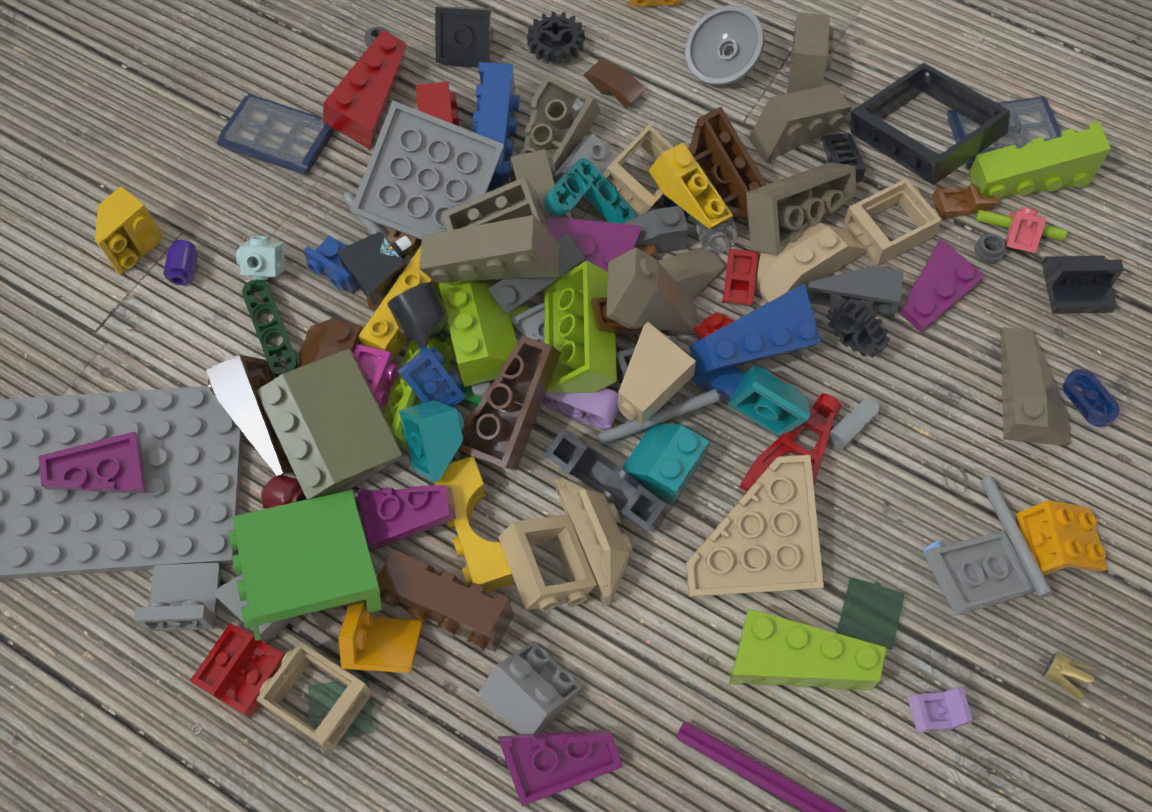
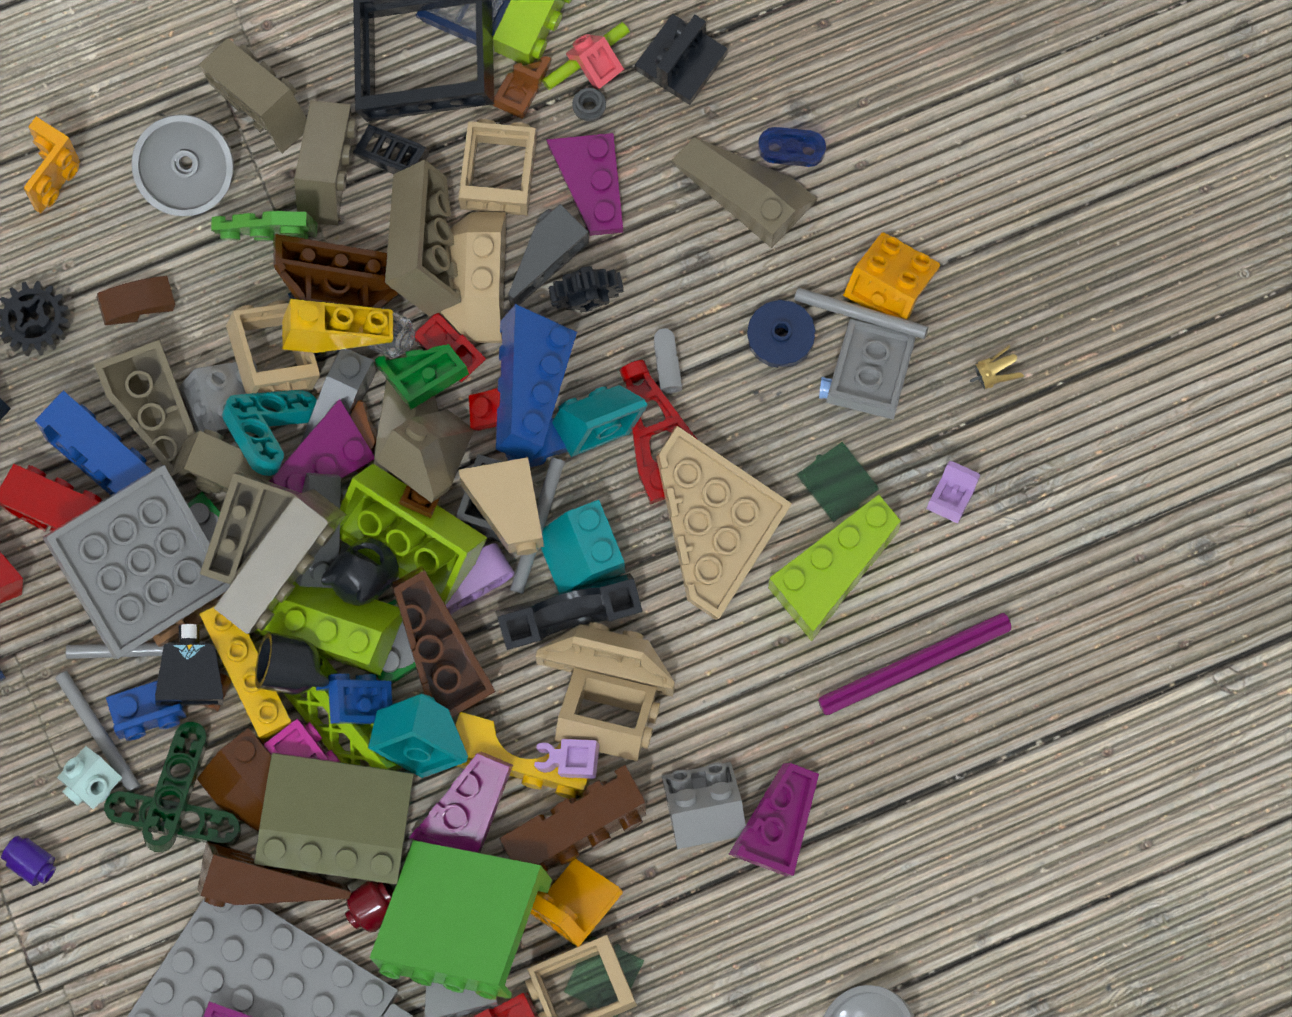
camera: 55 degrees left, 10 degrees up
(289, 307) = (174, 786): none -> dark green beam
(298, 256) = (97, 731): none -> light grey bar
(490, 557) = (574, 758): none -> lavender plate
(518, 316) = (358, 580): none -> black piece
(706, 267) = (422, 373): none -> green wing
(734, 105) = (272, 222): none -> bright green plate
(937, 500) = (779, 350): none -> dark blue plate

